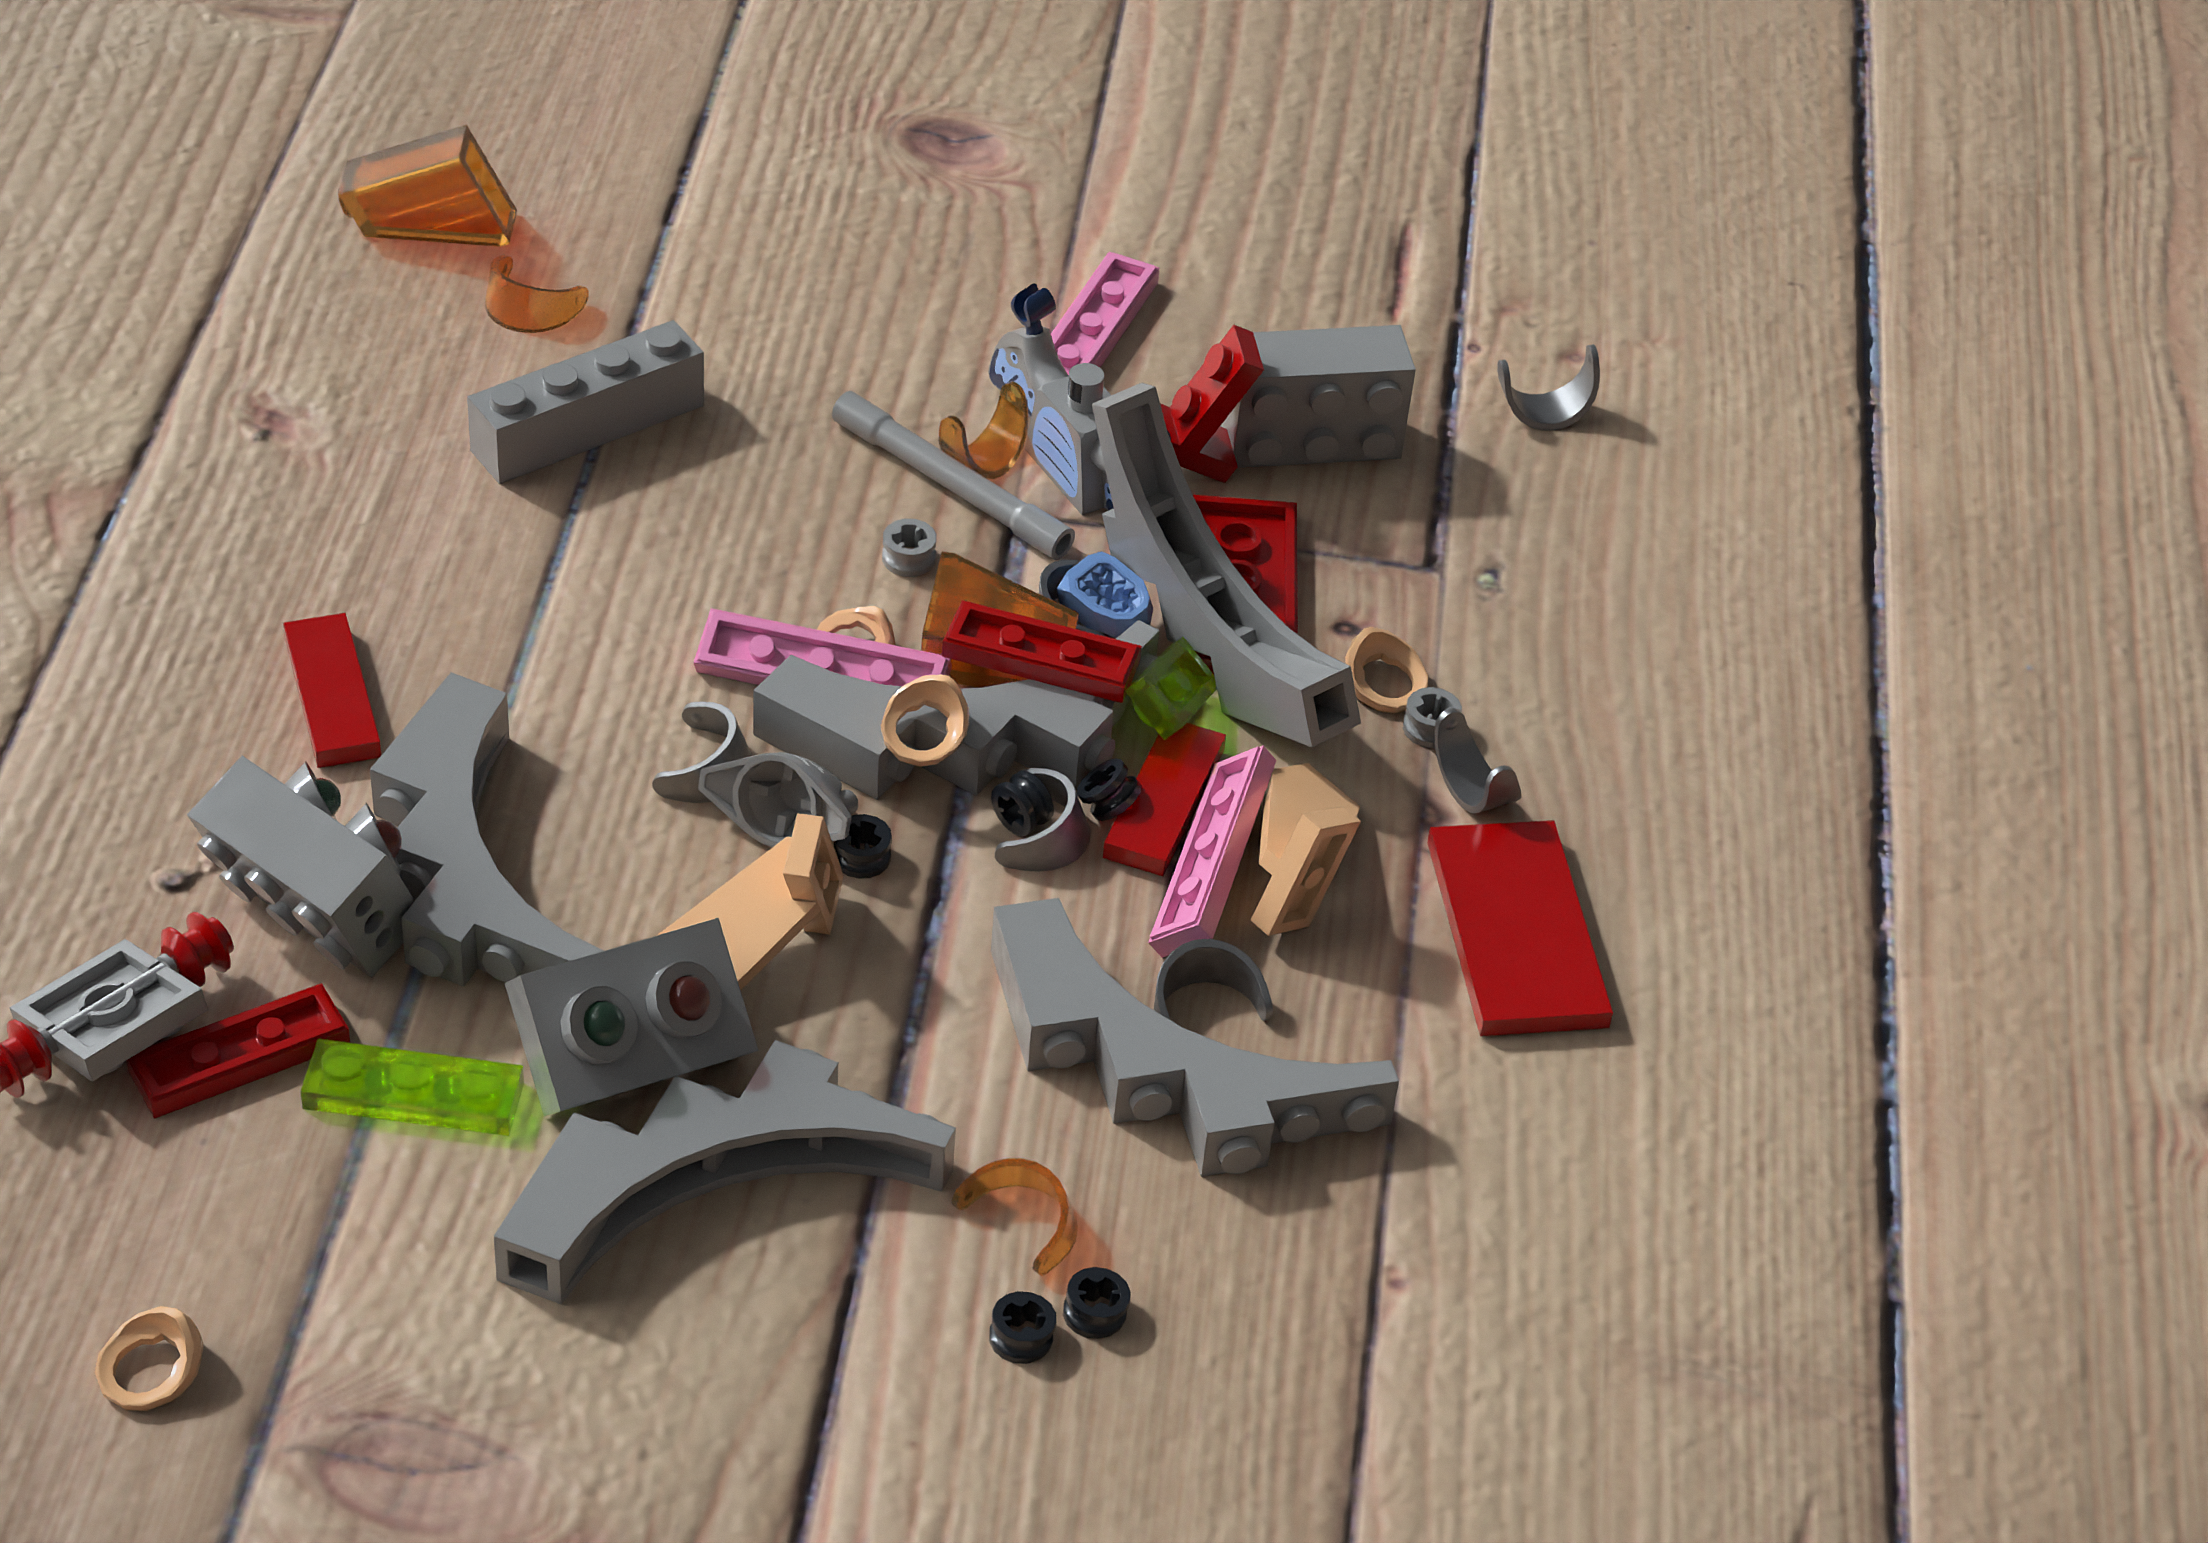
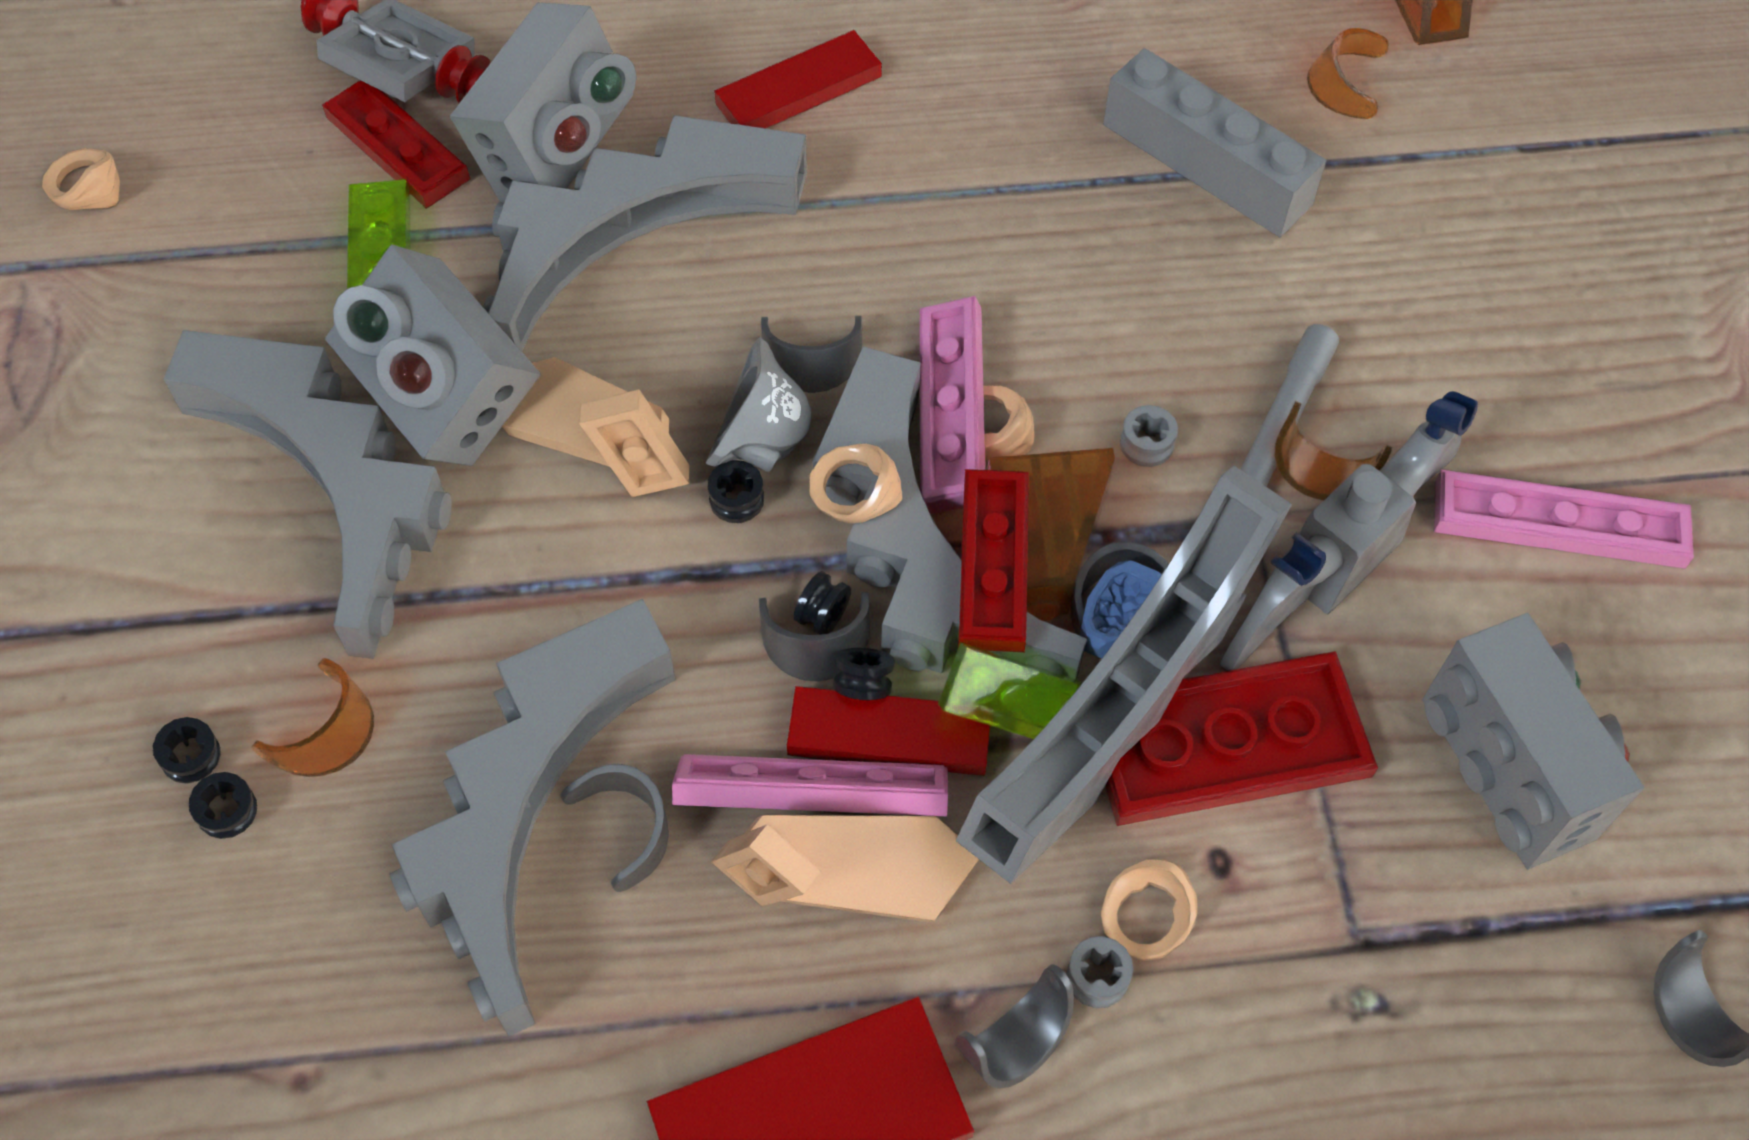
camera: 80 degrees right, 15 degrees up
(1208, 400) = (1418, 627): red bracket -> none

